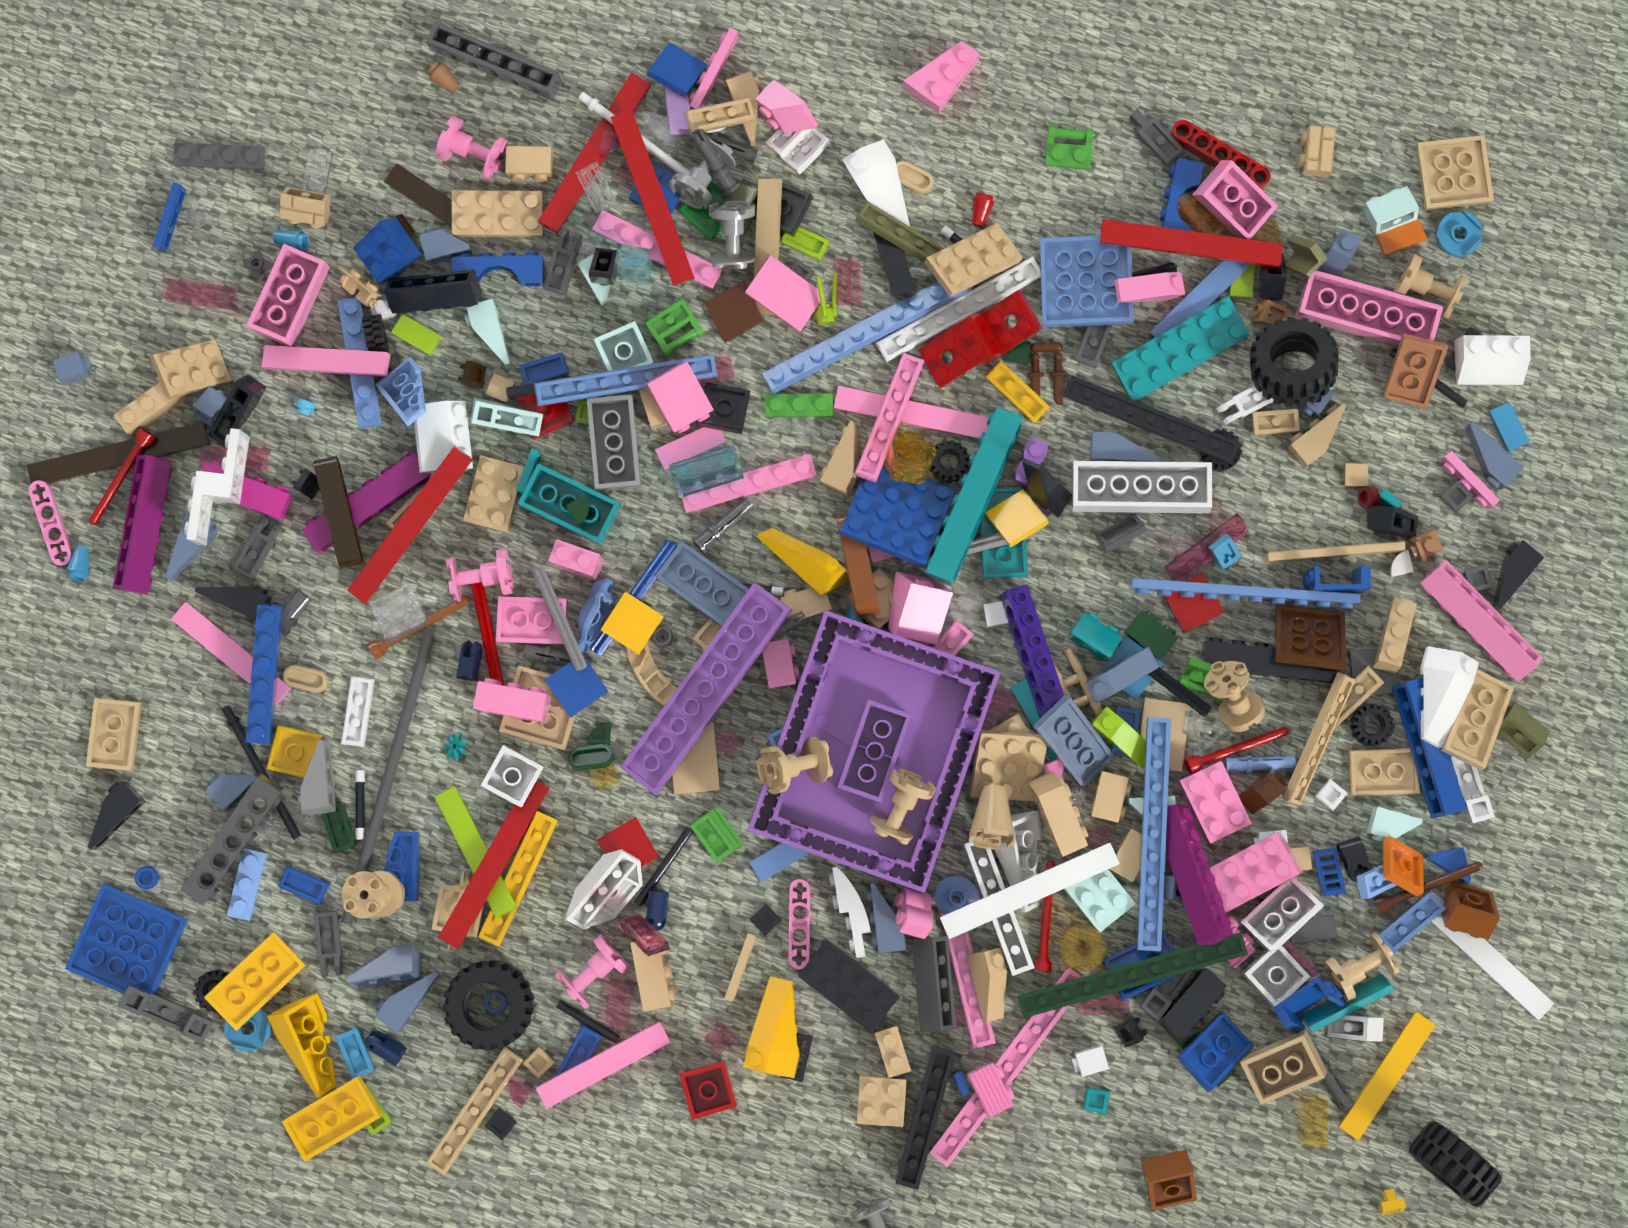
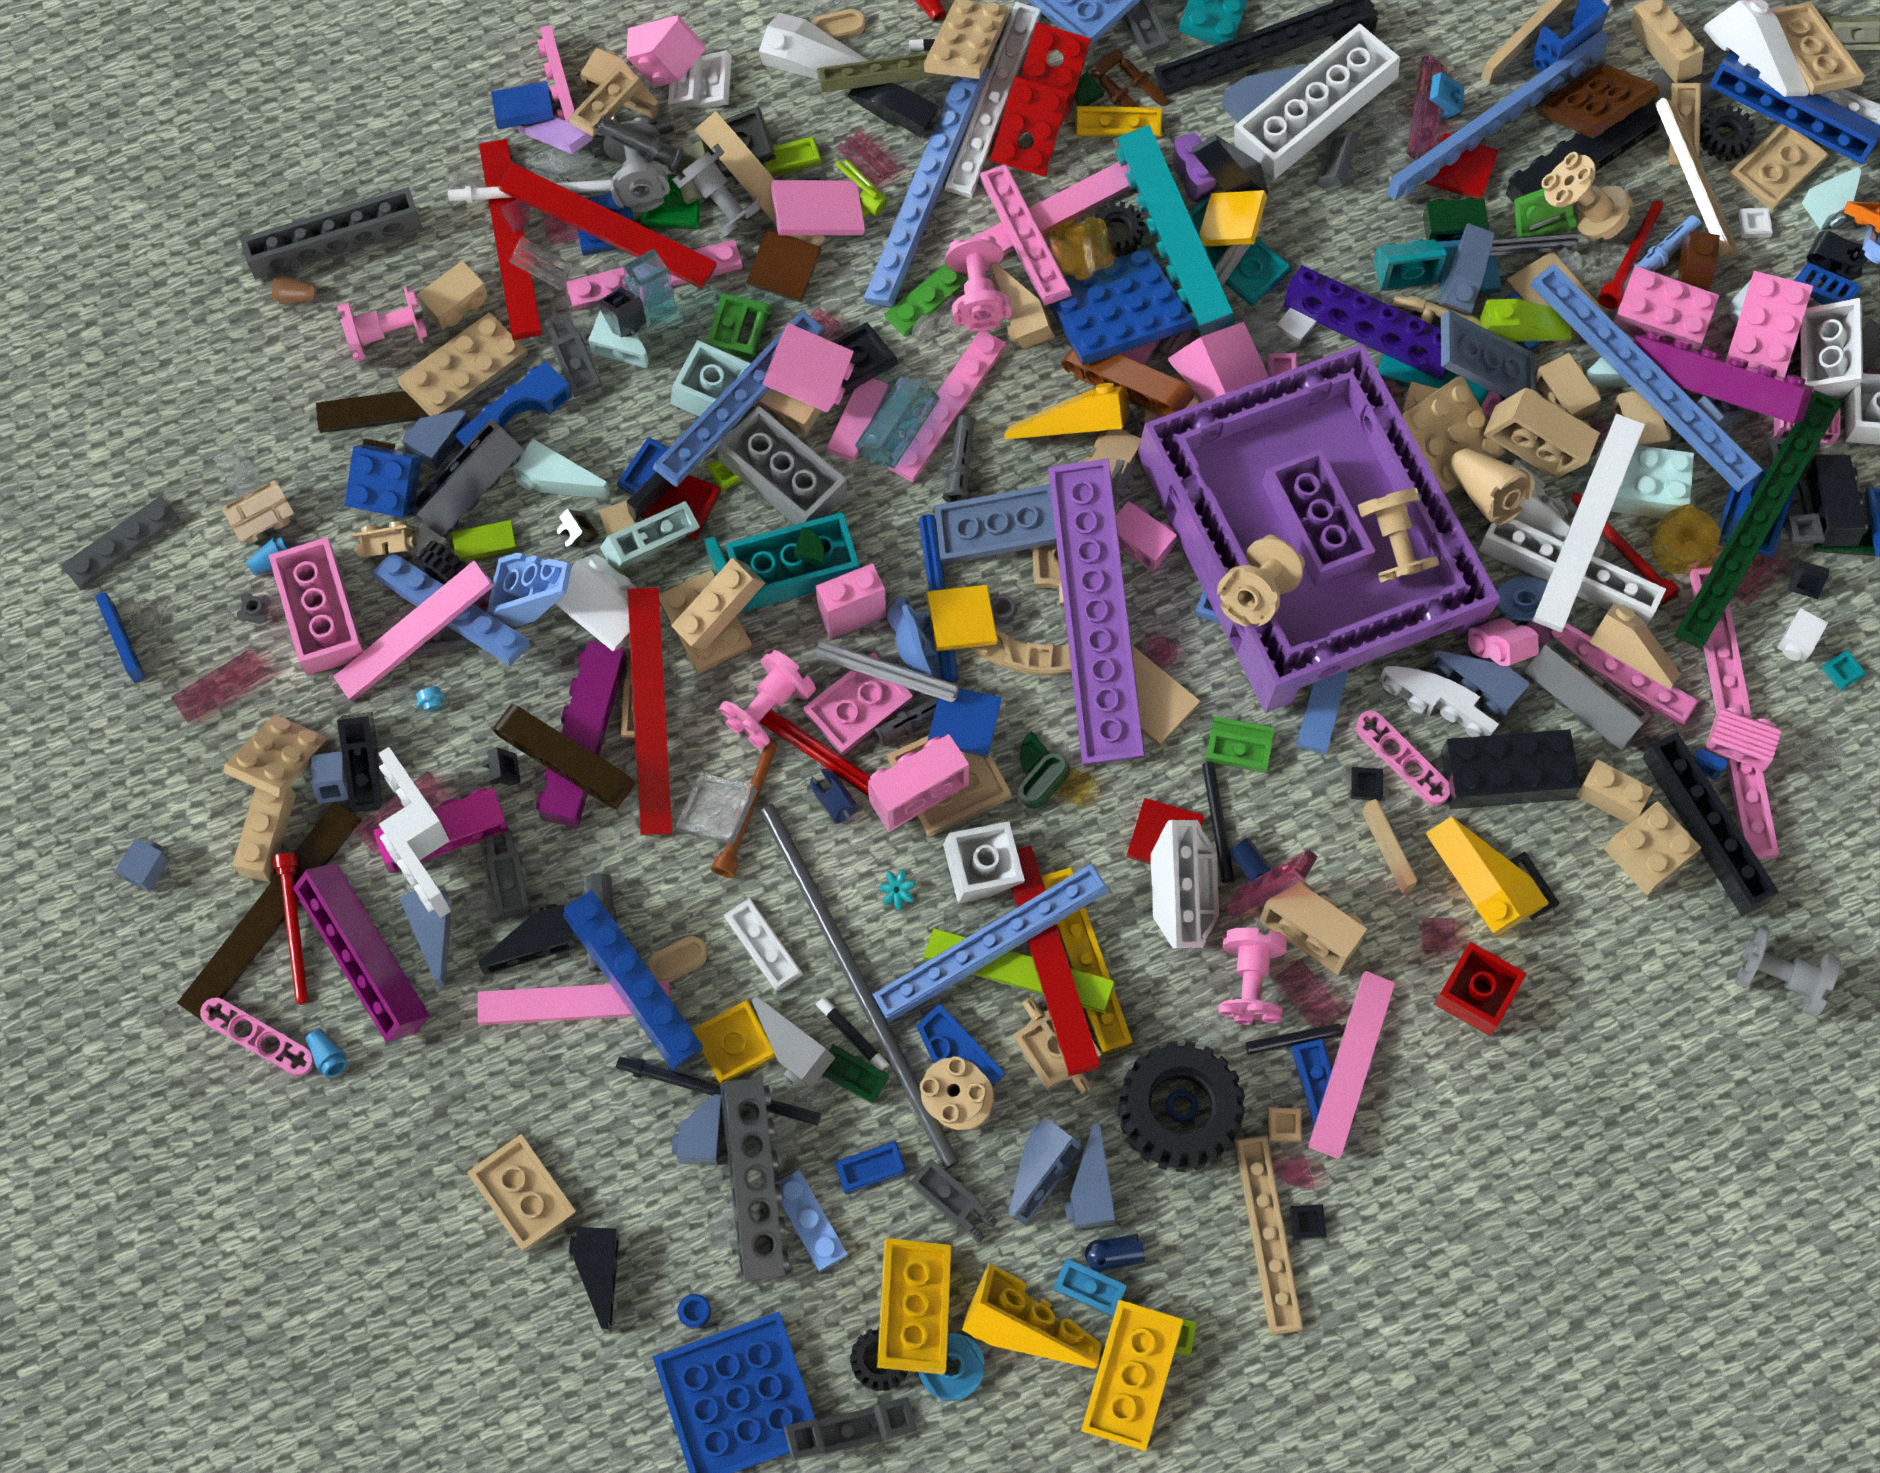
camera: 45 degrees left, 15 degrees down
(472, 825) = (990, 943): none -> medium blue tile
(499, 498) = (718, 604): none -> tan brick
(822, 435) = (981, 305): none -> bright pink piece

